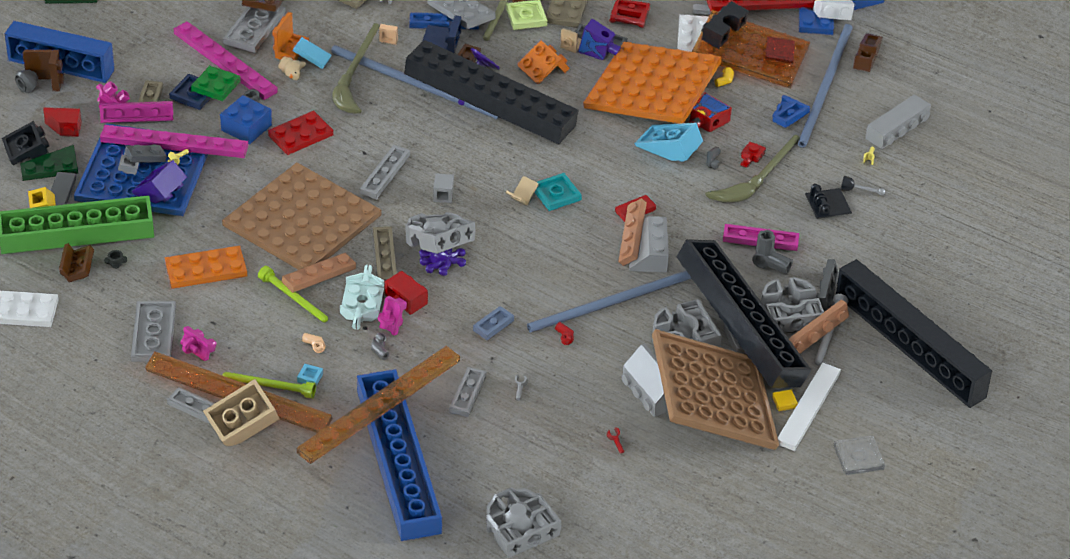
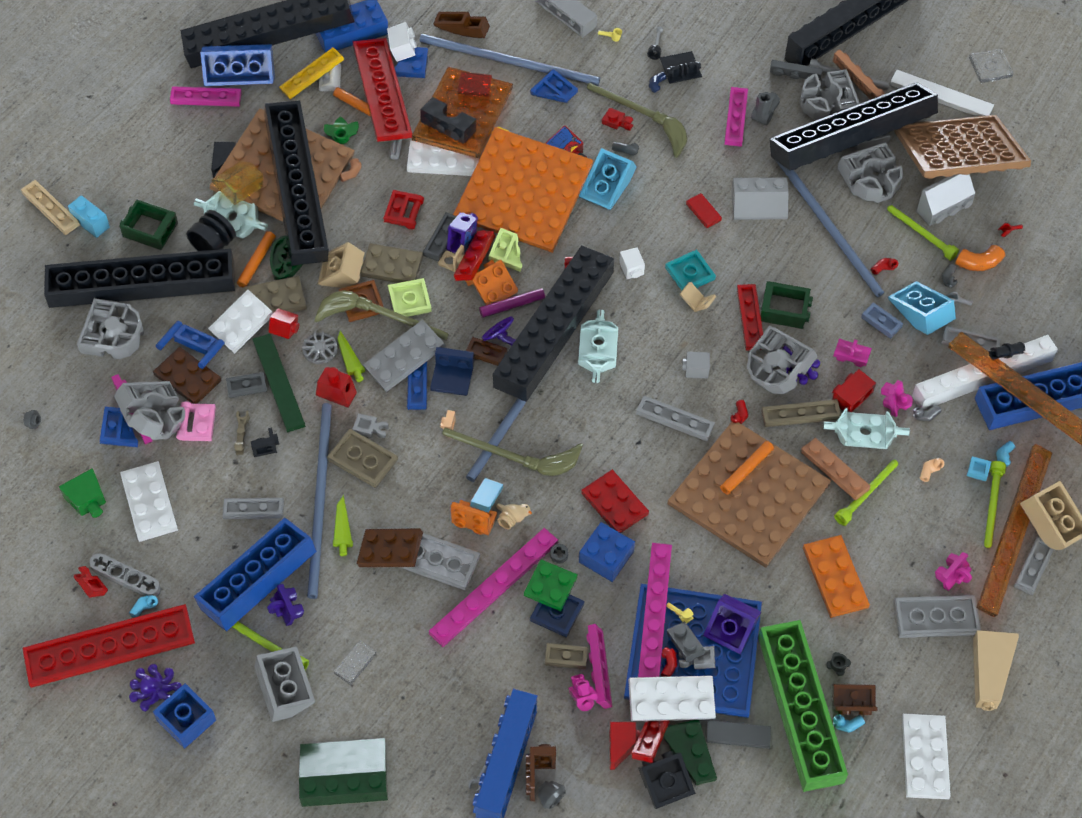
camera: 90 degrees left, 15 degrees up
(41, 198) = (778, 739): yellow brick -> none
(55, 259) = (842, 724): none -> medium azure arm
(64, 134) = (649, 740): none -> red tile
(91, 357) = (992, 664): none -> tan slope
(93, 142) = (671, 698): none -> white plate
(120, 145) = (671, 658): none -> red arm
(321, 207) = (747, 467): none -> orange piece
(328, 397) = (1003, 453): none -> medium azure arm
(388, 218) = (742, 413): none -> red arm
(427, 399) = (969, 378): none -> white brick
(431, 383) = (1006, 350): none -> black pin
(450, 294) = (852, 352): none -> dark pink hips
(458, 126) = (598, 357): none -> light aqua plate
(506, 229) = (749, 314): none -> red plate
(507, 353) = (924, 307): none -> medium azure slope
(514, 240) = (783, 317): none -> dark green window
(518, 70) = (512, 302): none -> magenta piece
(551, 381) = (947, 276): none -> dark grey arm
(565, 151) = (632, 263): none -> white brick
(568, 406) = (980, 261): none -> orange cylinder
(575, 49) = (474, 255): none -> red plate
(582, 73) = (506, 249): none -> yellowish green wing
(583, 385) = (949, 251): none -> lime piece
(632, 232) = (747, 208): nougat plate -> none
(784, 400) = (942, 111): yellow tile -> none
(800, 180) = (655, 80): none -> dark blue arm

